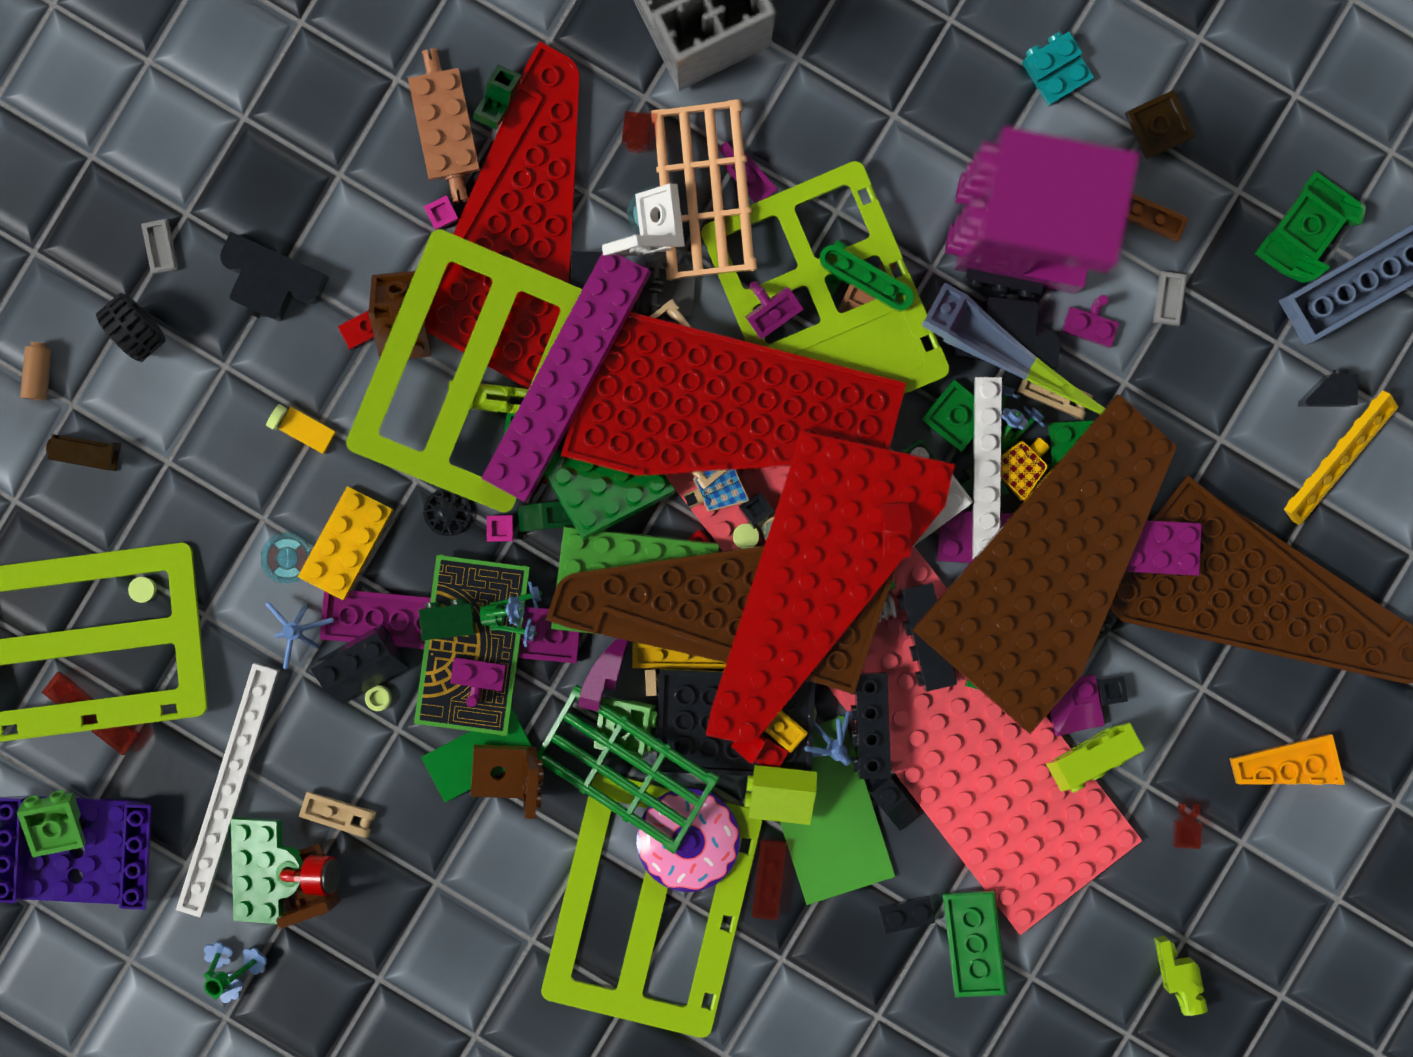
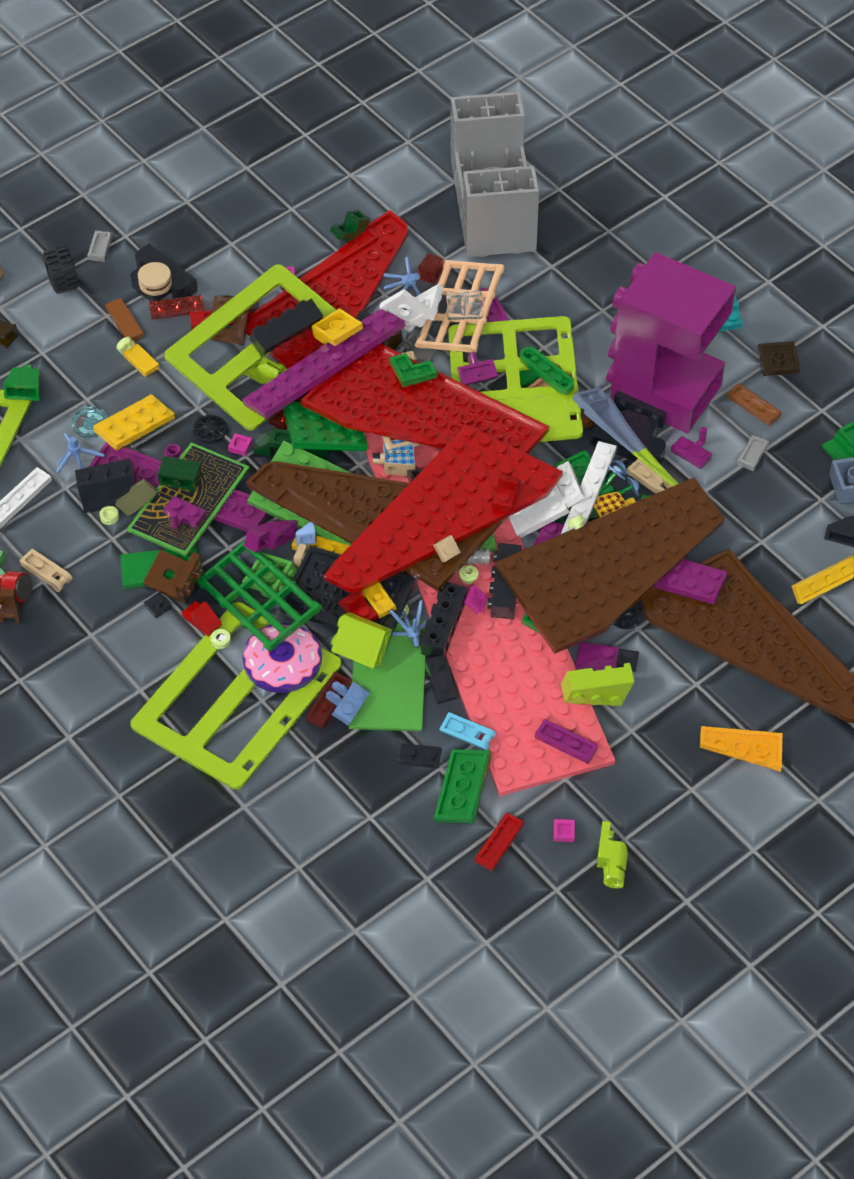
camera: 25 degrees right, 35 degrees down
(170, 533) = (23, 384): none -> green torso
(253, 369) = (124, 319): none -> dark orange tile
(269, 301) = (154, 278): none -> tan head
(315, 323) = (176, 307): none -> clear red plate
(406, 673) = (136, 498): none -> olive slope
(409, 571) = (173, 450): none -> magenta plate
(444, 125) = (309, 234): nougat plate -> none
(493, 342) = (285, 327): none -> black brick
(494, 614) = (212, 479): plant -> none
(500, 813) = (157, 605): none -> black plate
(562, 317) = (336, 327): none -> yellow plate
(564, 816) = (202, 617): none -> red slope
(601, 840) = (220, 639): none -> yellowish green tile
(619, 177) = (407, 280): none -> medium blue plant
(646, 656) = (306, 535): none -> light blue slope
(687, 360) = (409, 373): none -> green plate
(715, 200) = (465, 305): none -> clear panel
(798, 878) = (350, 703): none -> medium blue hinge
(847, 641) = (446, 548): none -> tan plate
(884, 640) = (468, 578): none -> yellowish green plate
(899, 679) = (475, 599): none -> dark pink plate
(954, 451) = (569, 485): none -> white plate
(955, 870) = (467, 731): none -> medium azure plate
(993, 529) = (576, 522): none -> yellowish green plate
(1043, 1001) = (499, 842): none -> red plate
(1081, 847) = (566, 741): none -> magenta plate
(1113, 960) = (563, 830): none -> dark pink plate
(1187, 831) = (652, 763): clear red plate -> none

